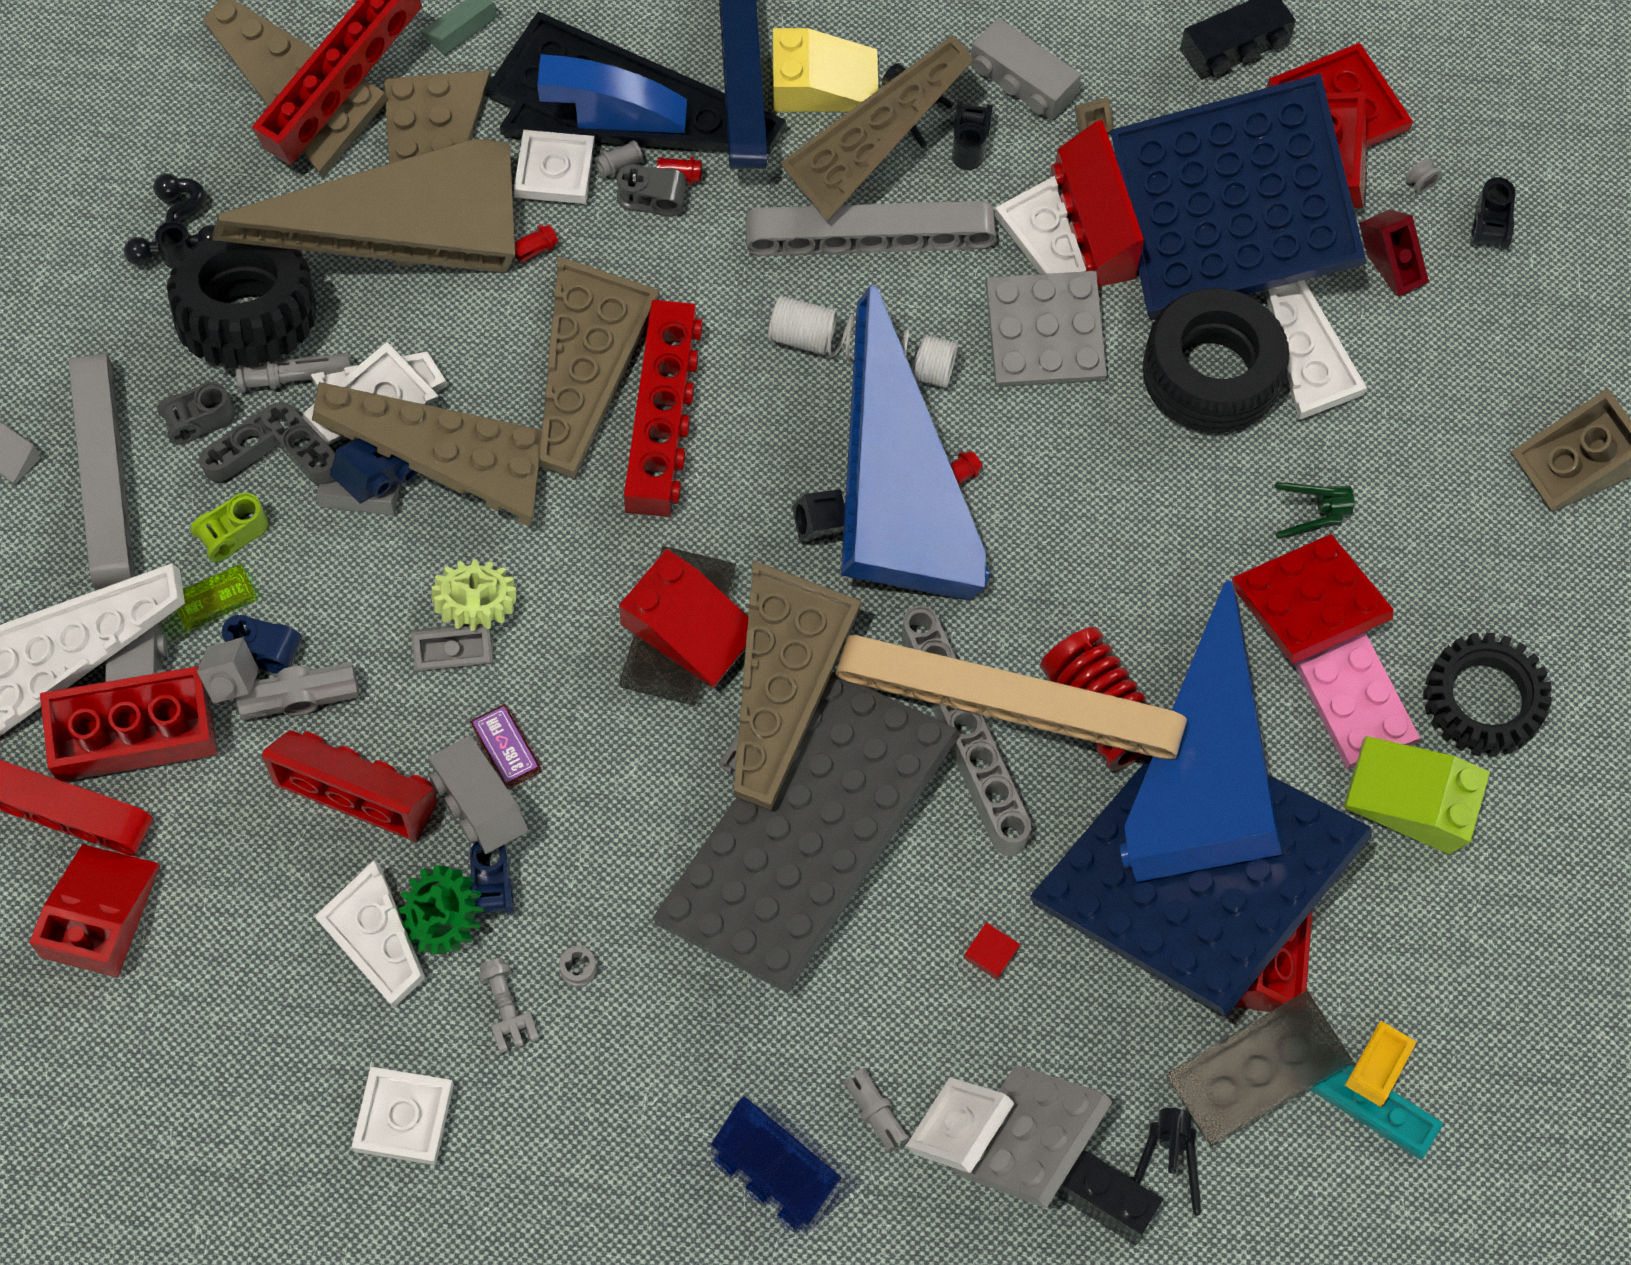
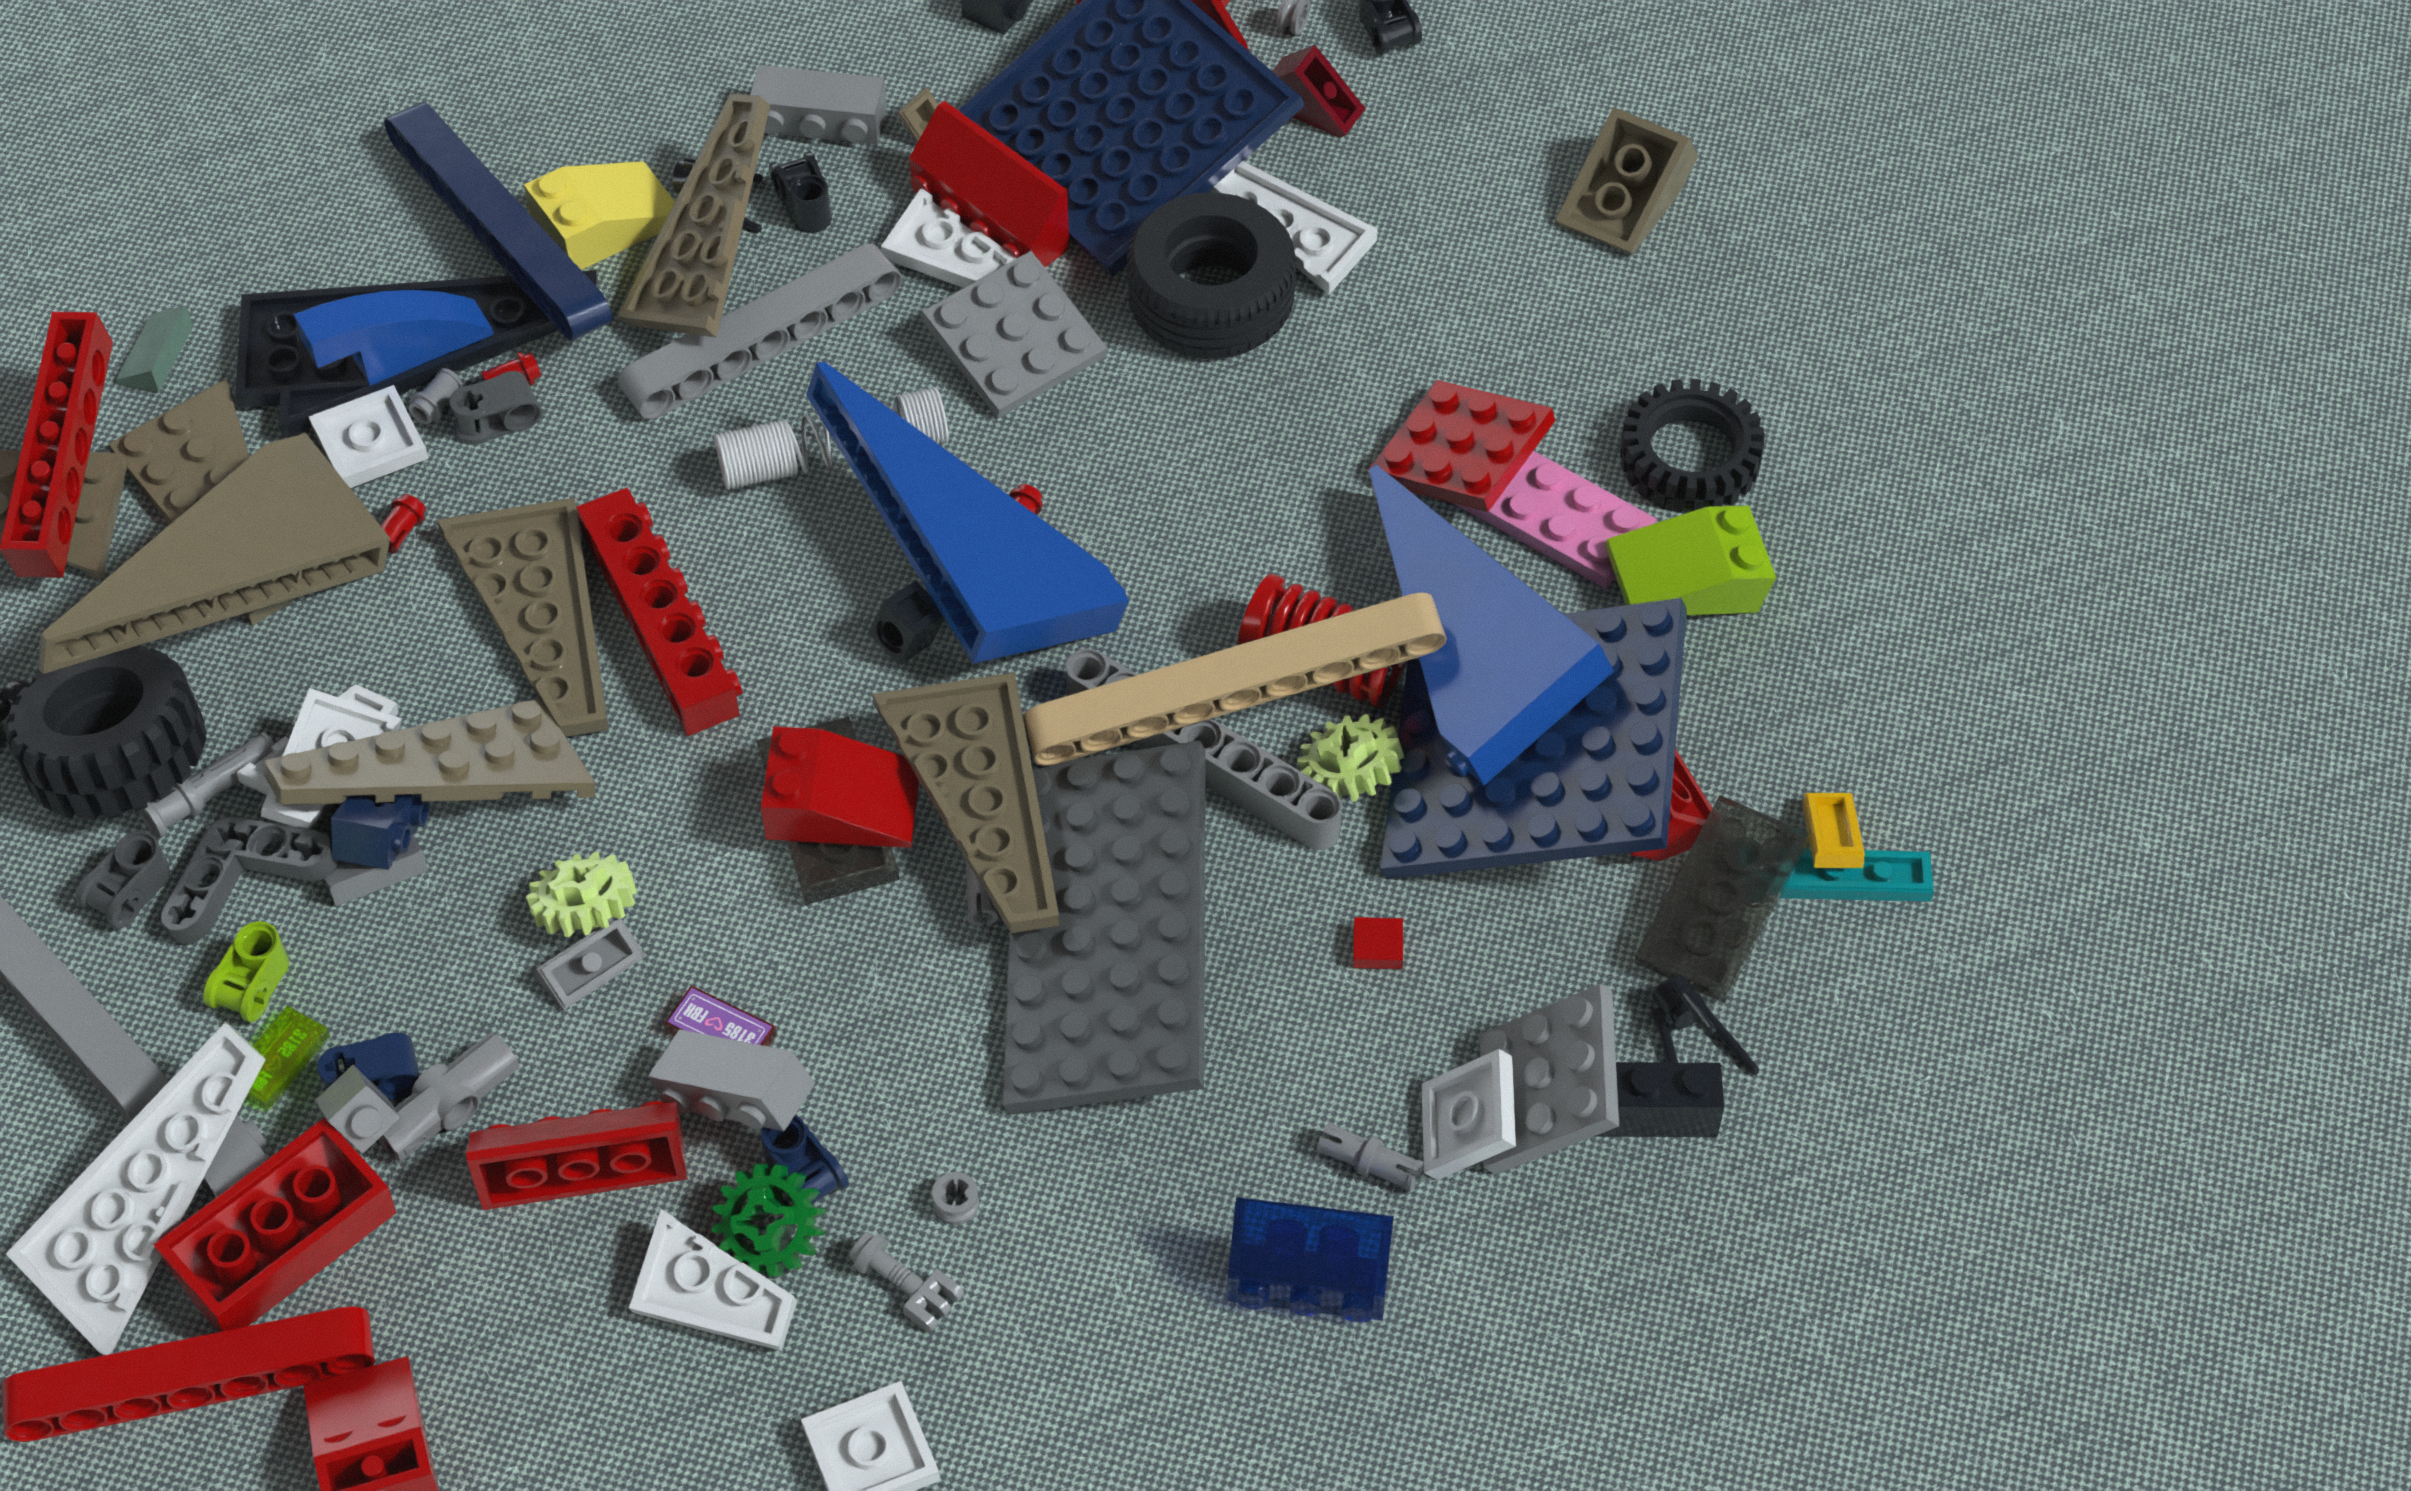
camera: 30 degrees left, 10 degrees down
(1063, 799) = (1352, 756): none -> yellowish green gear
(1331, 500) = (1414, 349): dark green plant -> none

